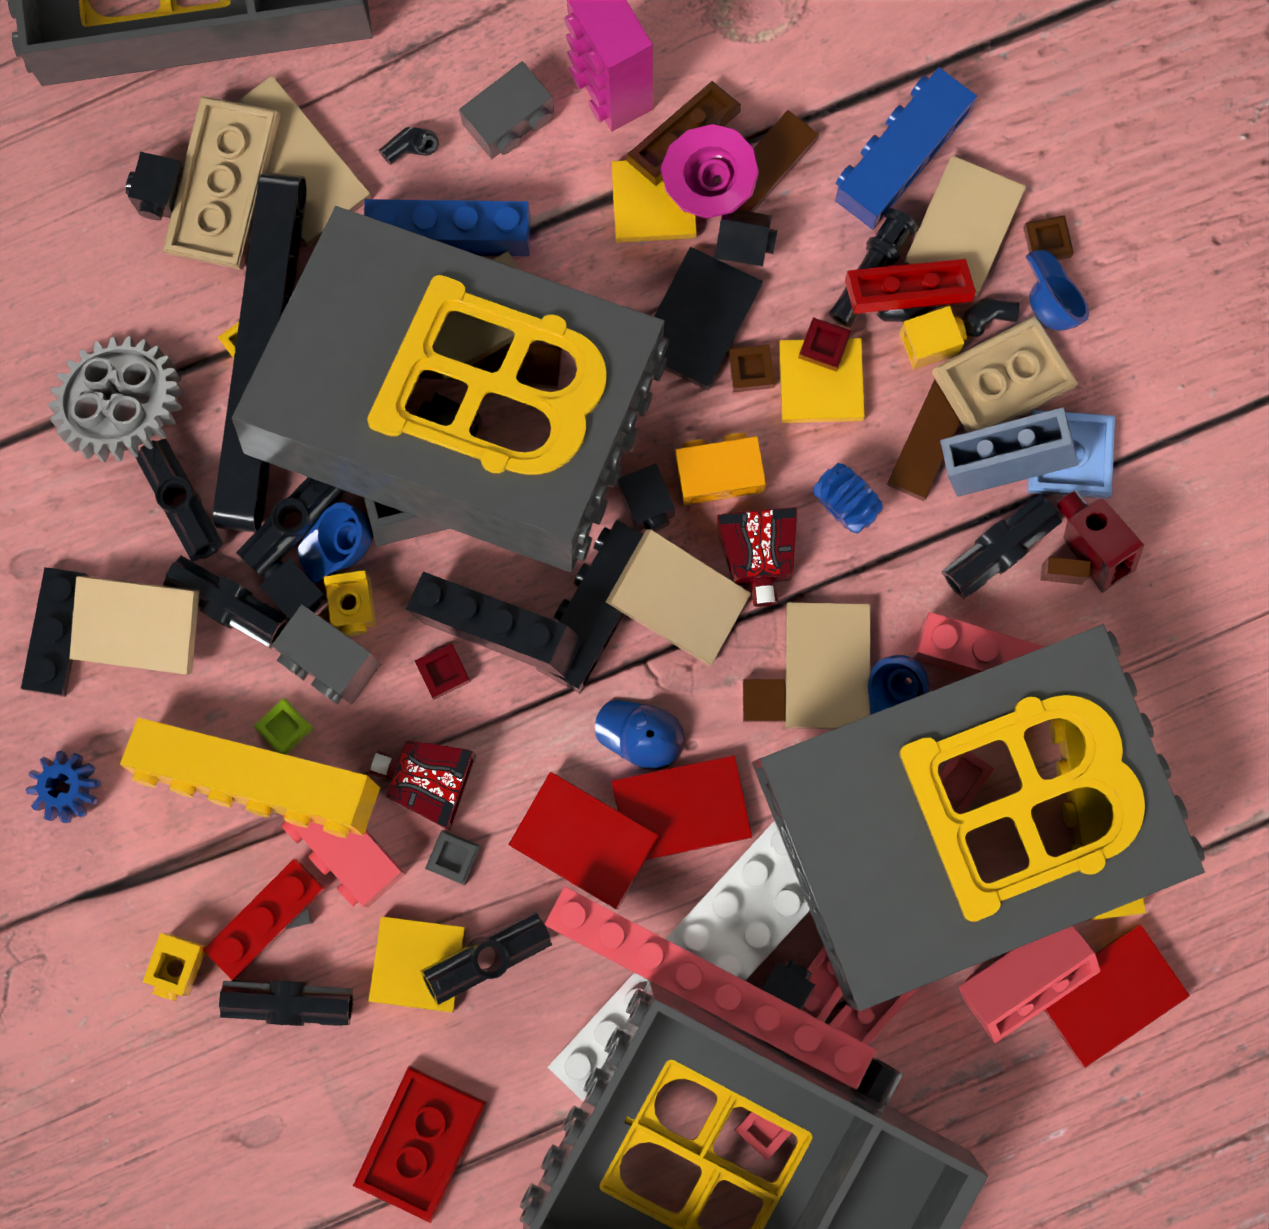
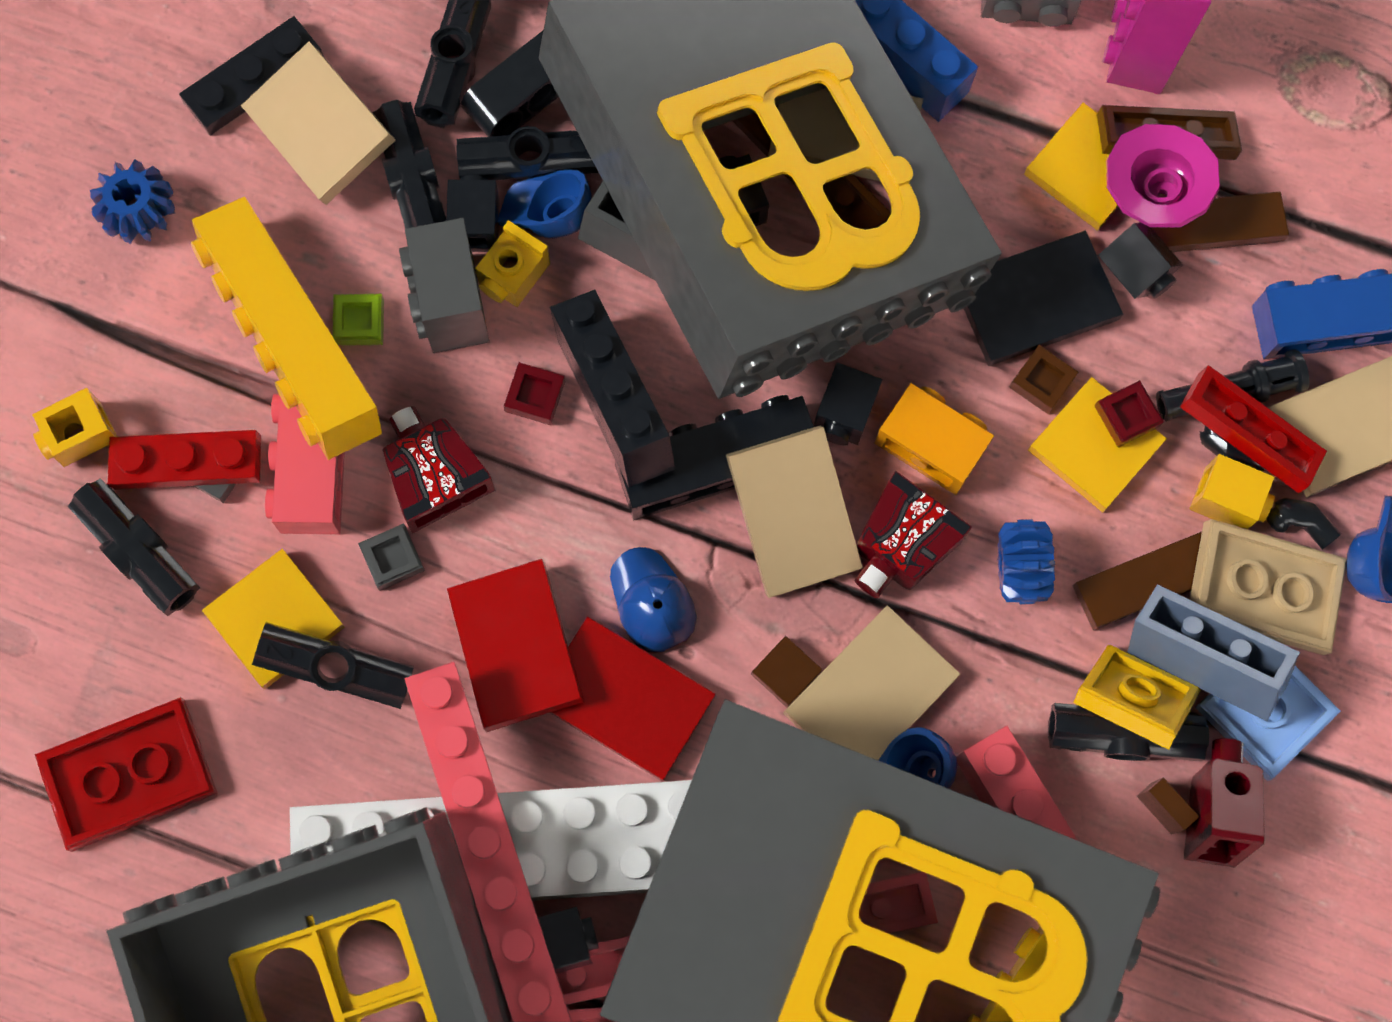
camera: 35 degrees right, 5 degrees down
(989, 520) = (1137, 696): none -> yellow tile

